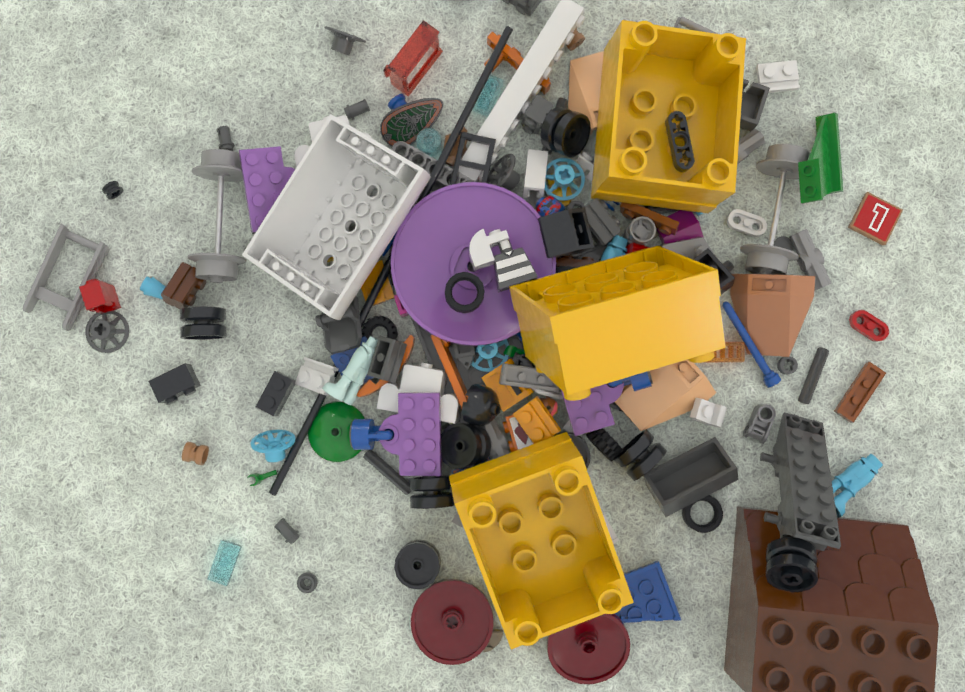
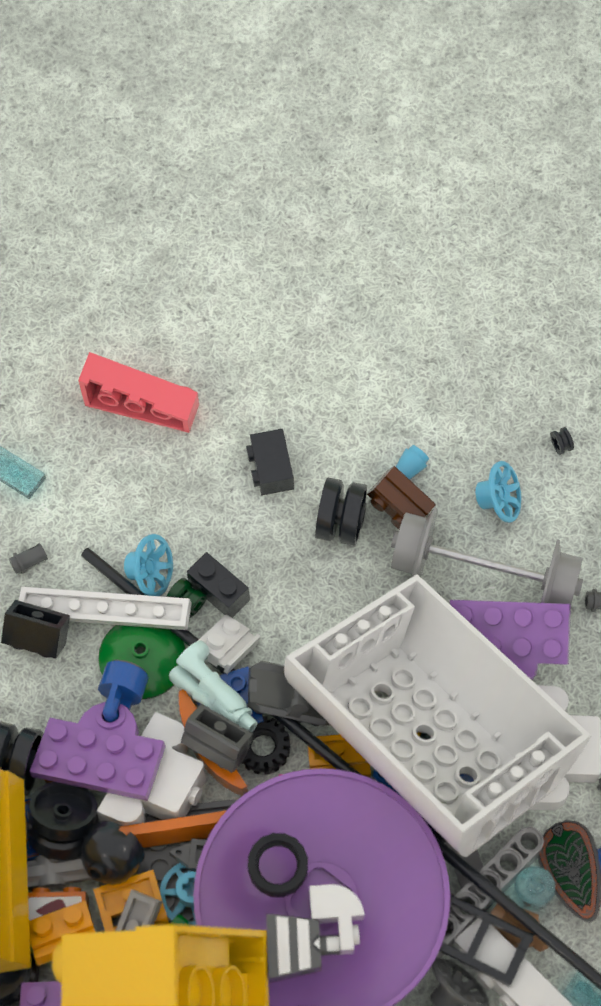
camera: 105 degrees right, 20 degrees down
(38, 288) = (441, 327): light grey piece -> none
(99, 296) = (414, 393): red brick -> none
(105, 330) = (368, 393): dark grey wheel -> none
(144, 493) = (136, 394): none -> coral wedge
(163, 225) = (496, 492): none -> medium azure wheel
(195, 453) = (170, 467): medium nougat wheel -> none
(259, 477) = (112, 540): green hand -> none
(292, 409) = (184, 589): none -> dark green wheel
(311, 466) = (112, 607): none -> white plate
(338, 508) = (35, 629): none -> black brick
(387, 471) = (67, 707): dark grey axle -> none

